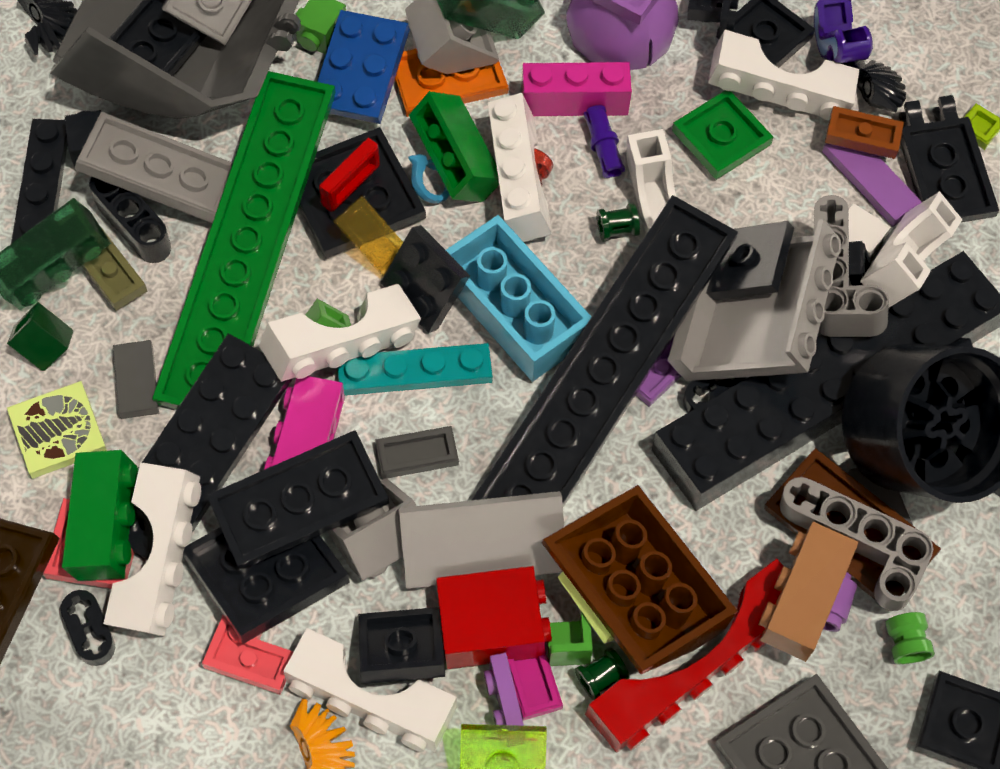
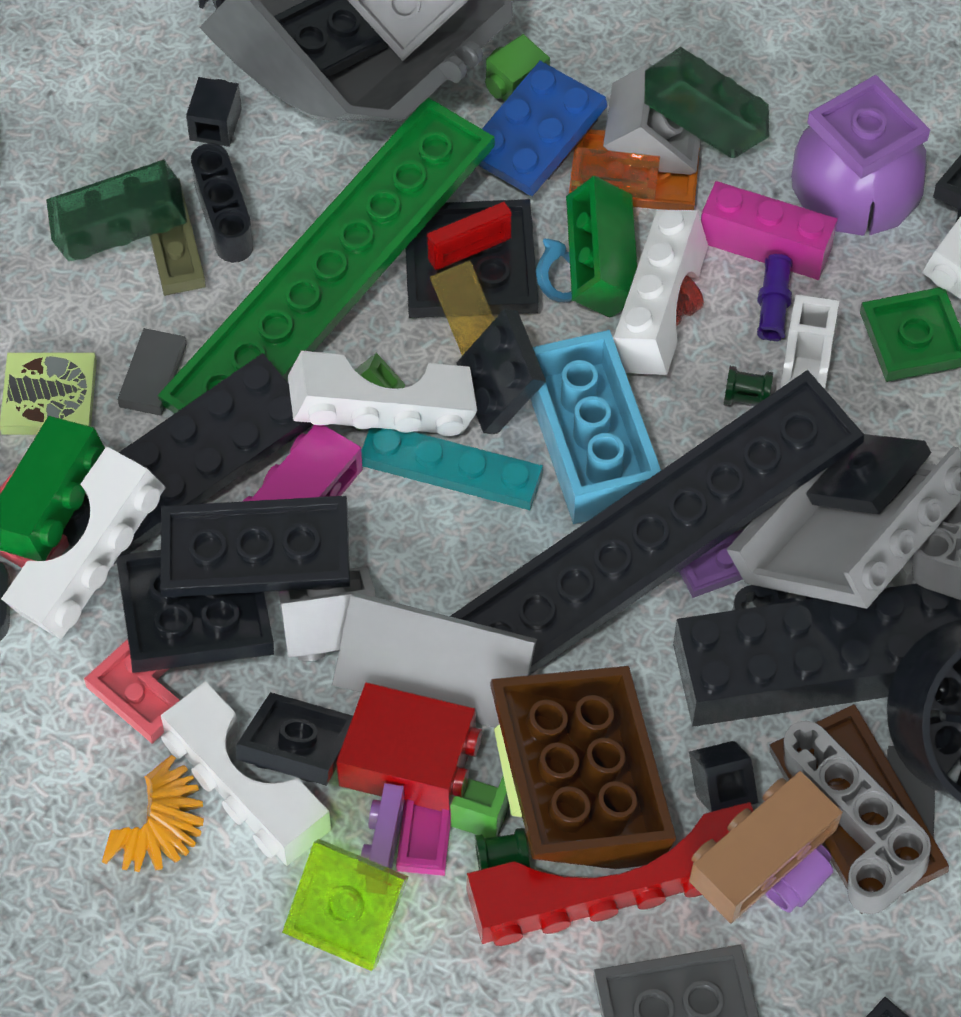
camera: 25 degrees right, 5 degrees down
(40, 336) = (74, 294): dark green panel -> none
(41, 174) = (153, 129): black plate -> none
(154, 166) = (266, 158): light grey tile -> none
(417, 452) = (412, 552): dark grey tile -> none
(447, 78) = (627, 171): none -> clear orange plate
(745, 544) = (723, 776): none -> black brick
(909, 638) = (868, 949): bright green wheel -> none

